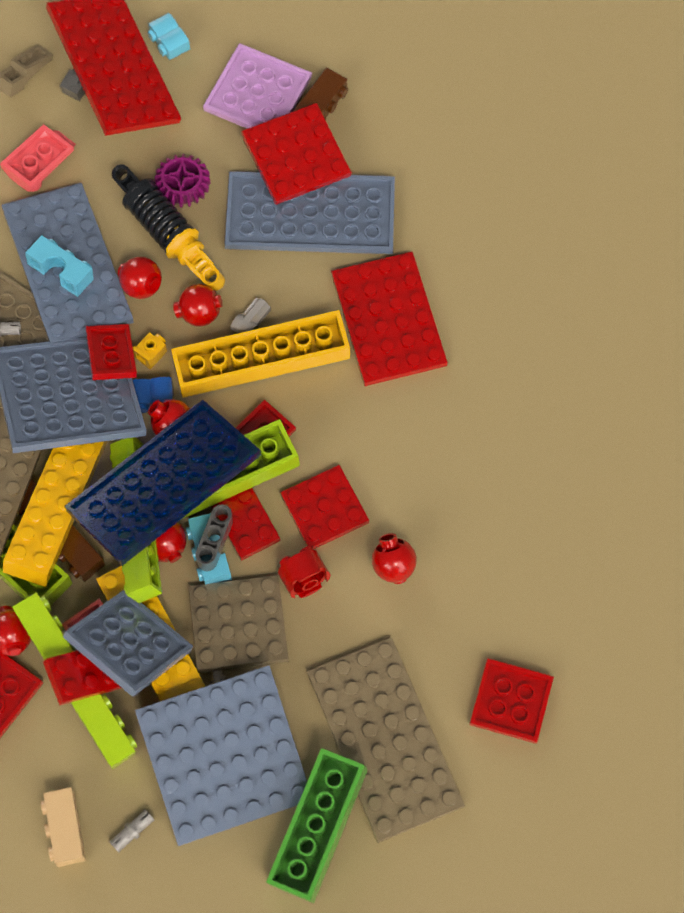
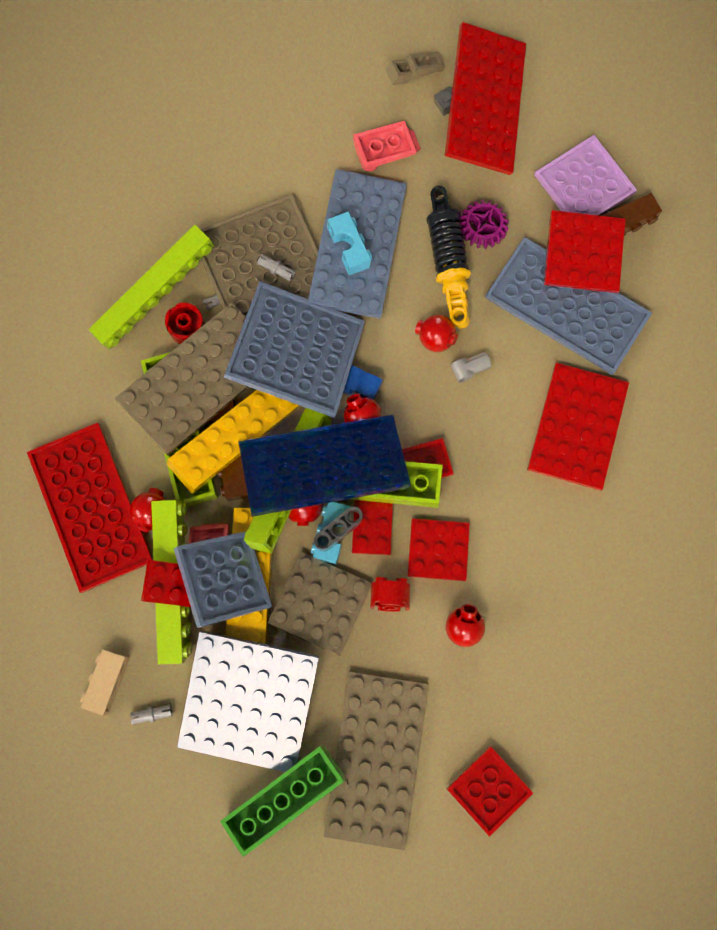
camera: 35 degrees right, 10 degrees up
(110, 352) = (347, 334): red plate -> none
(140, 277) = (405, 286): red brick -> none
(147, 355) = (377, 353): yellow brick -> none
(168, 36) = (542, 99): medium azure brick -> none
(261, 353) = (462, 400): yellow brick -> none

